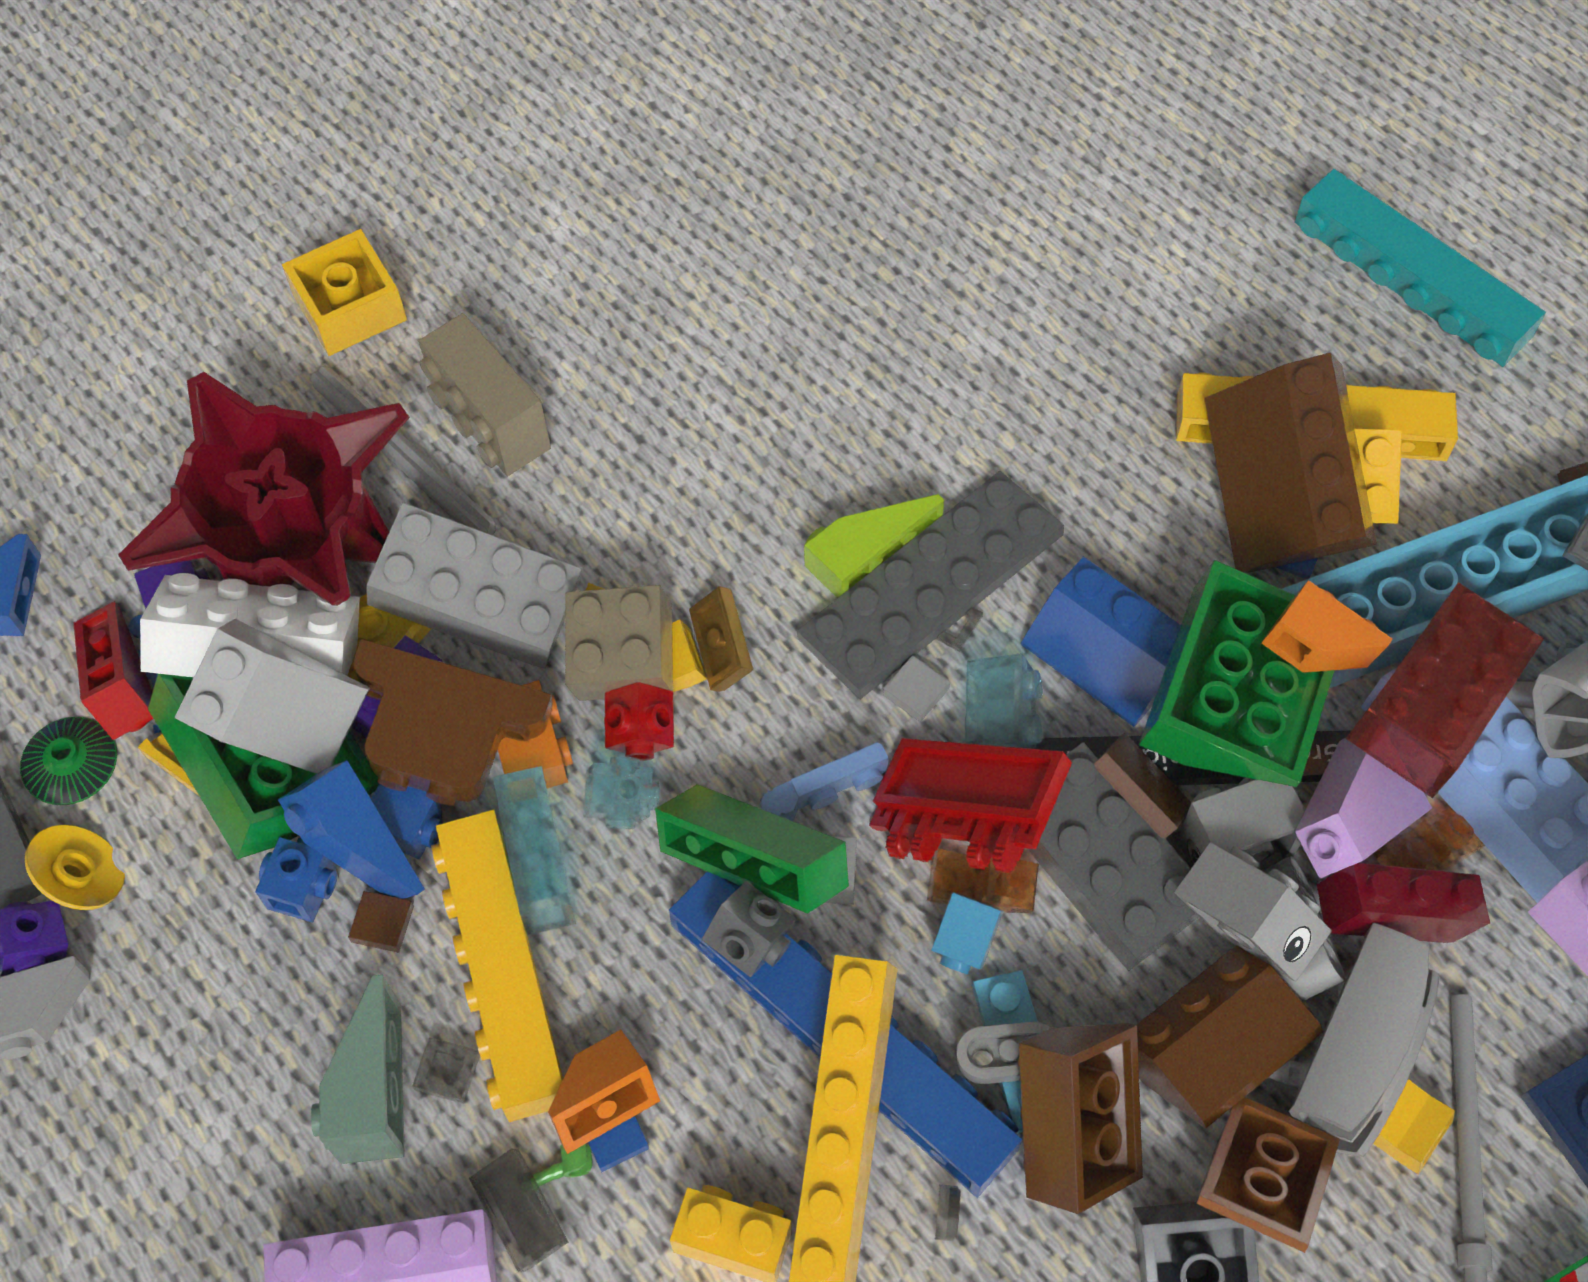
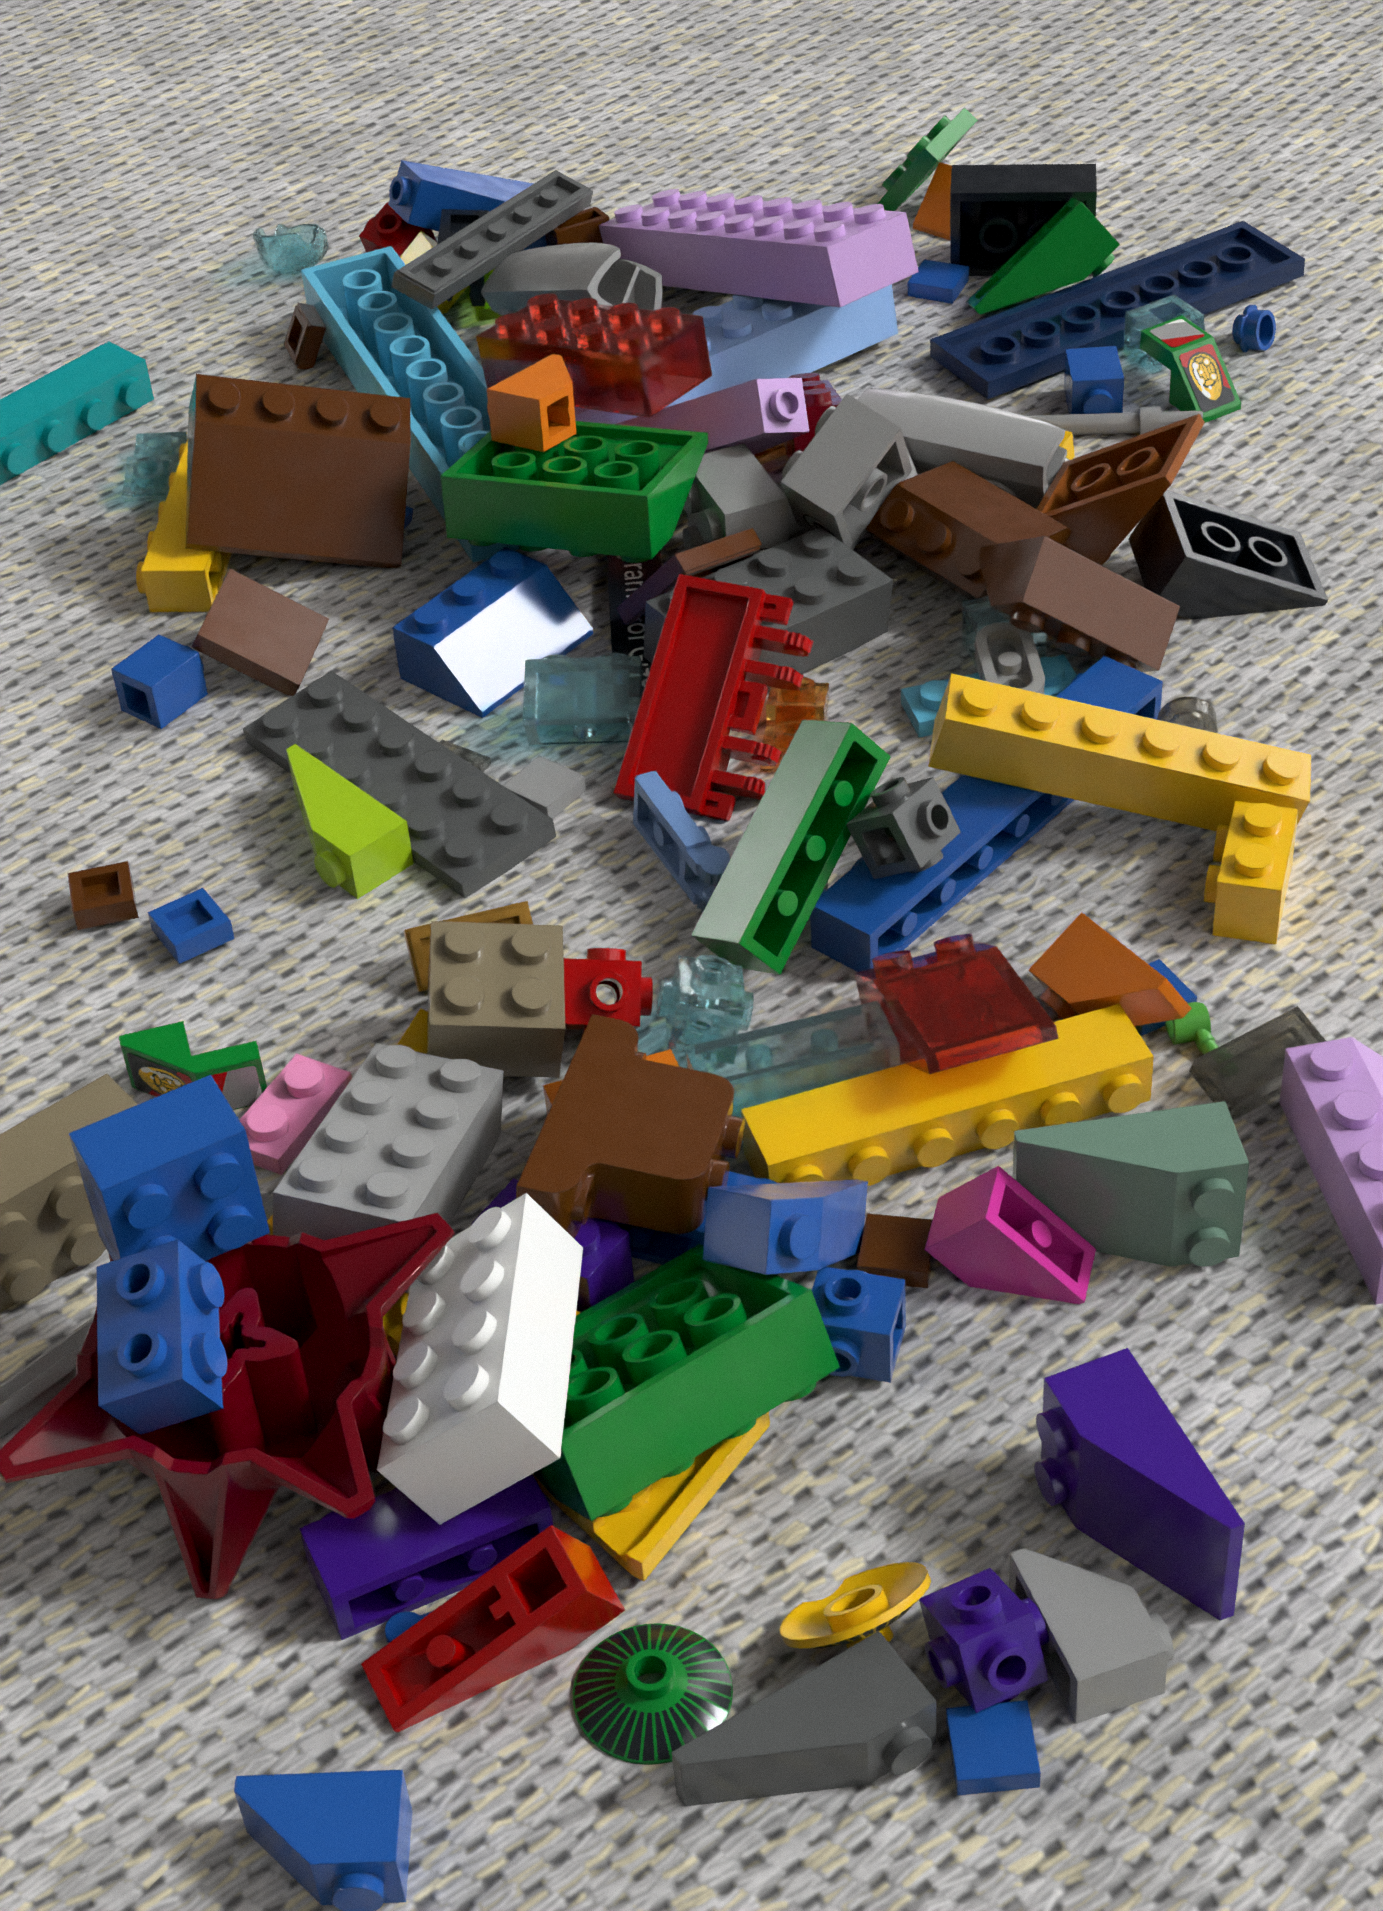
camera: 90 degrees left, 20 degrees down
(106, 1041) = (1138, 1480): none -> dark purple slope
(250, 439) = (159, 1337): none -> blue brick
(271, 699) = (606, 1284): light grey slope -> none
(346, 979) = (1009, 1241): none -> dark pink slope
(347, 426) = (172, 1174): none -> blue brick
(560, 961) = (954, 1004): none -> clear red slope
(576, 534) = (291, 1111): none -> bright pink plate
(612, 461) = (163, 1061): none -> green slope
(769, 456) = (191, 925): none -> blue plate
(809, 398) = (102, 895): none -> reddish brown plate
(966, 933) = (872, 707): dark azure brick -> none
(1058, 407) = (159, 681): none -> blue brick
(1111, 469) = (260, 633): none -> reddish brown tile
(1367, 371) = (151, 466): none -> clear light blue slope
(1529, 1202) = (1093, 380): none -> blue brick

